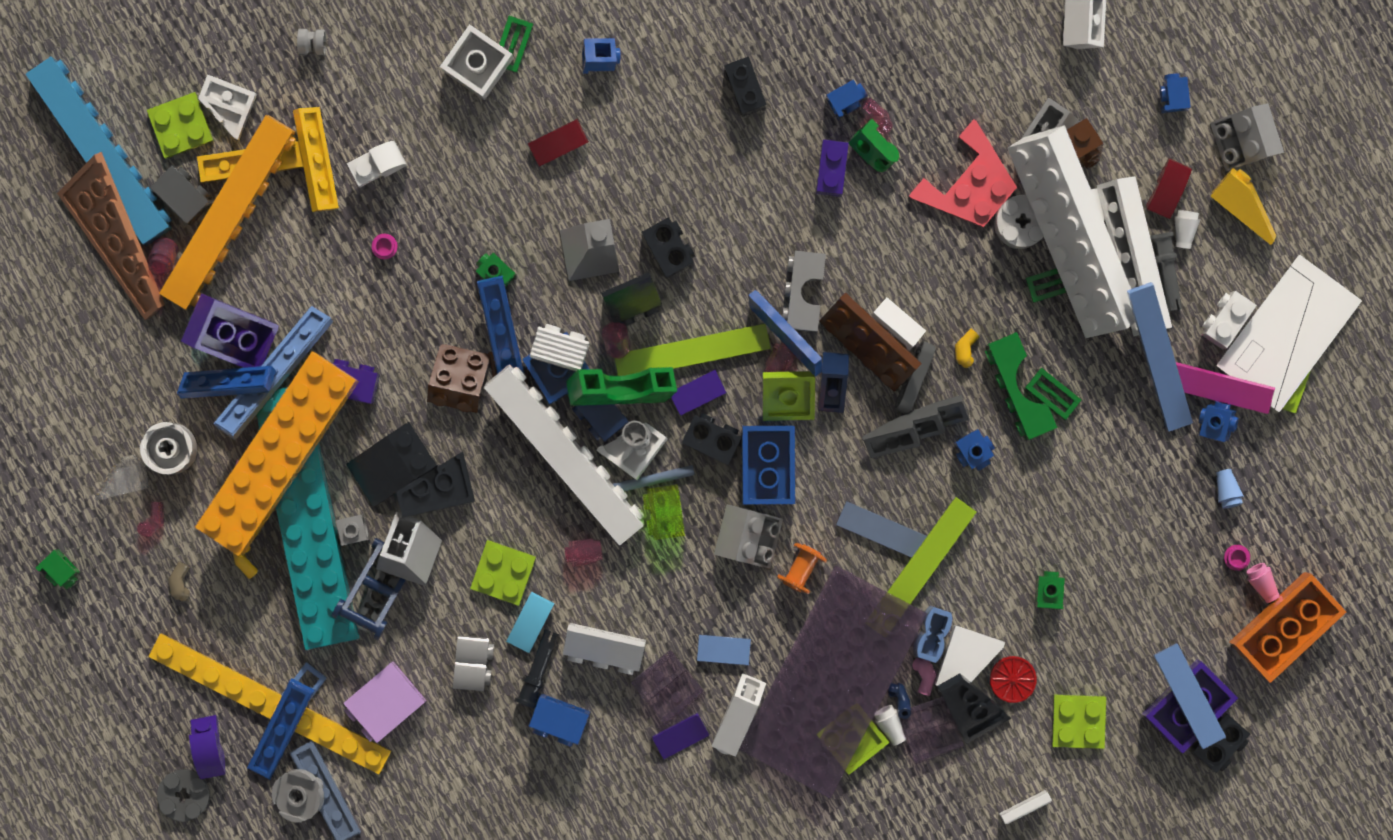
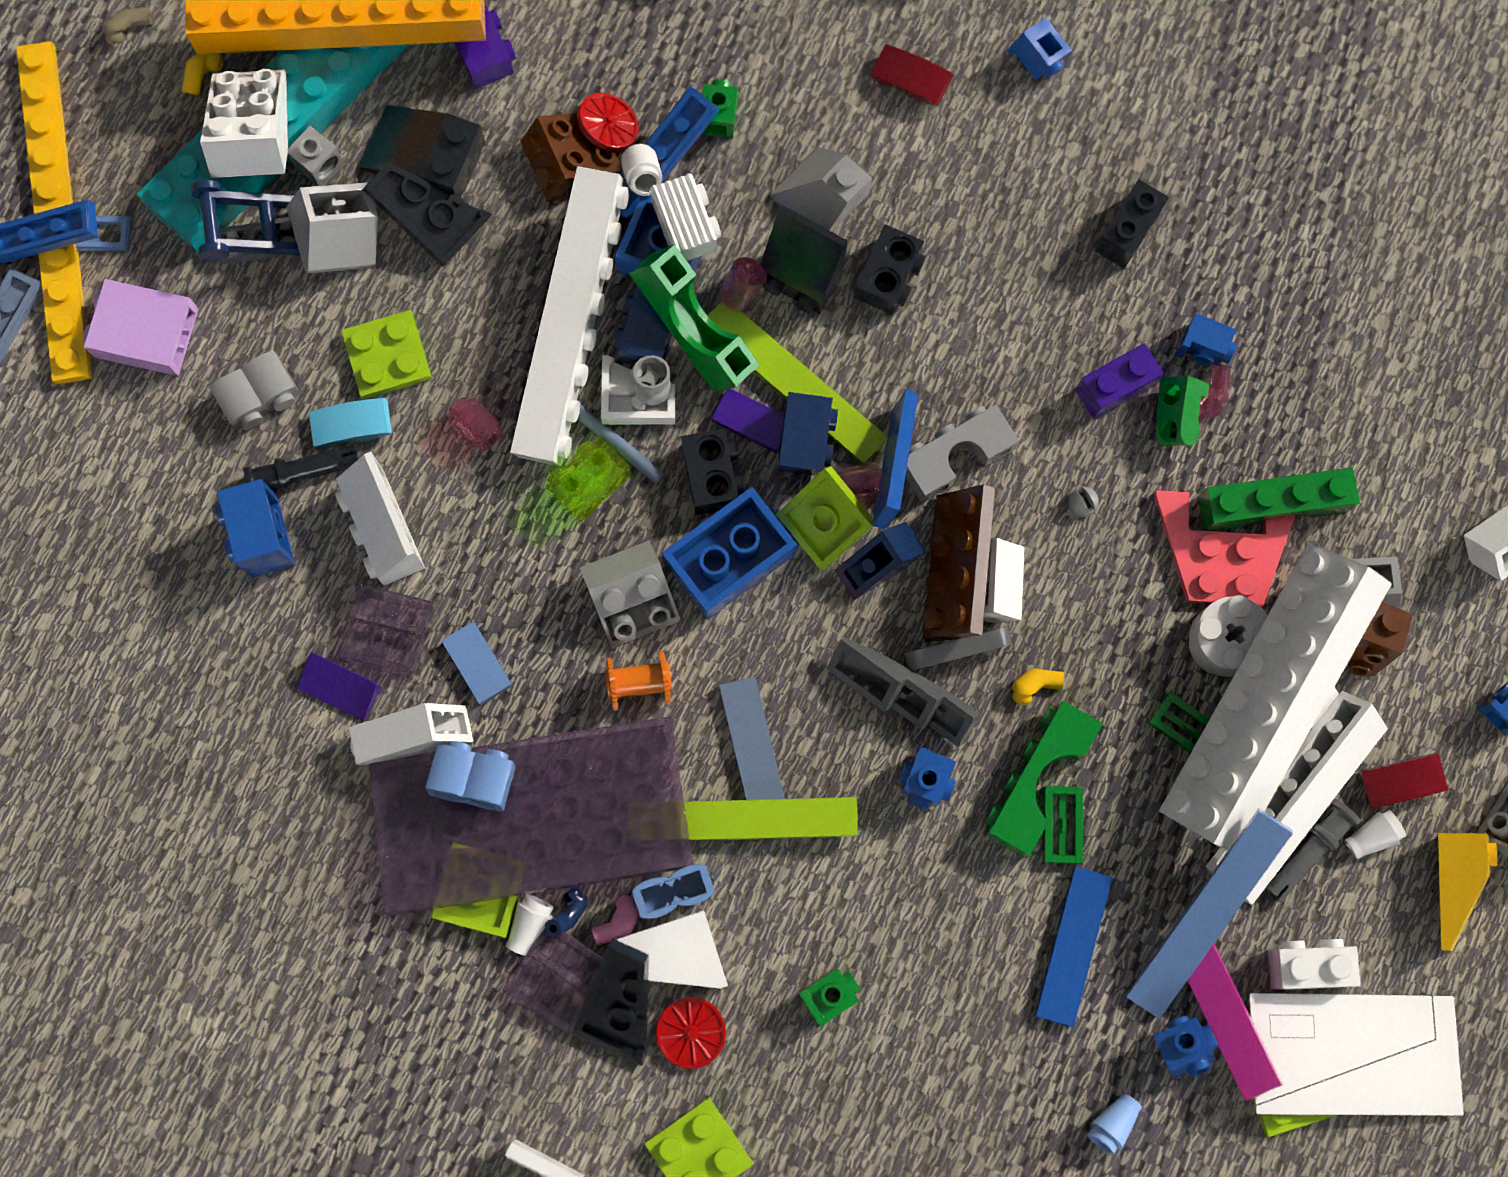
camera: 50 degrees right, 10 degrees down
(313, 557) = (246, 124): none -> white slope
(455, 343) = (607, 122): none -> red wheel
(508, 349) = (641, 169): none -> white brick
(732, 370) = (806, 434): none -> dark blue brick
(790, 699) = (470, 776): none -> medium blue brick
(883, 246) = (1078, 504): none -> light grey hinge
(966, 133) = (1259, 500): none -> green arch
(1121, 438) = (1073, 946): none -> blue tile

